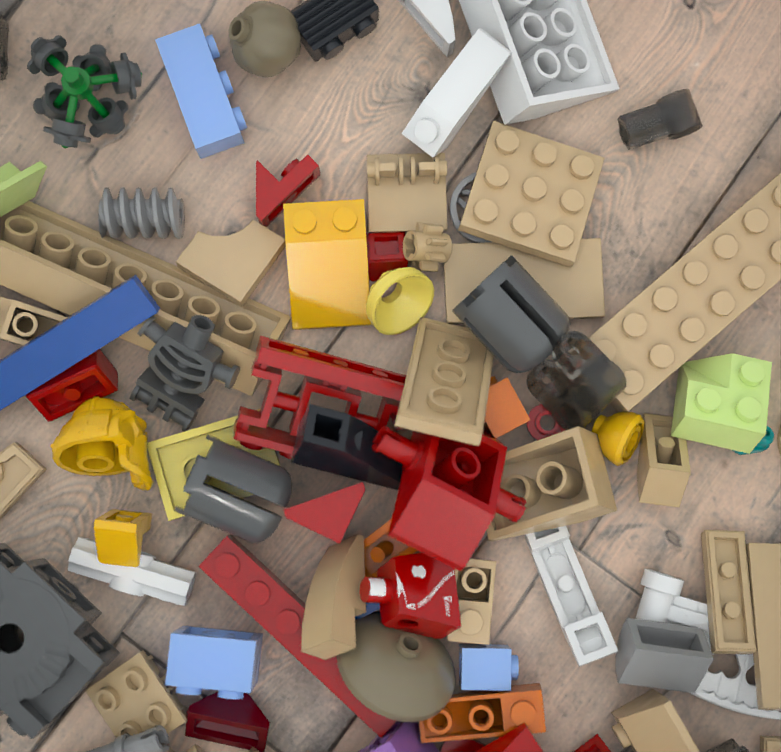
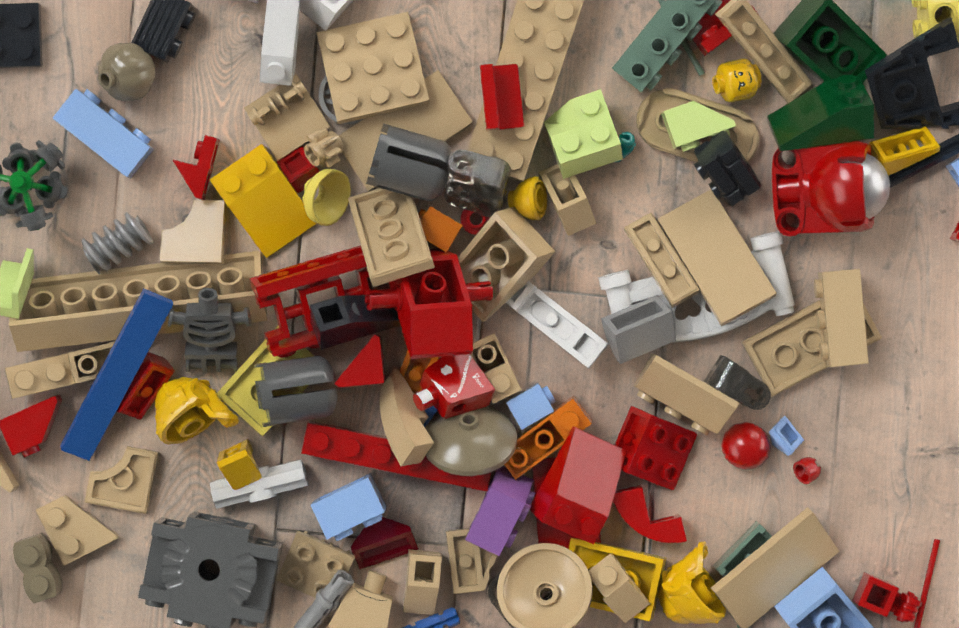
camera: 25 degrees left, 5 degrees up
(660, 303) = (501, 96): none -> red panel

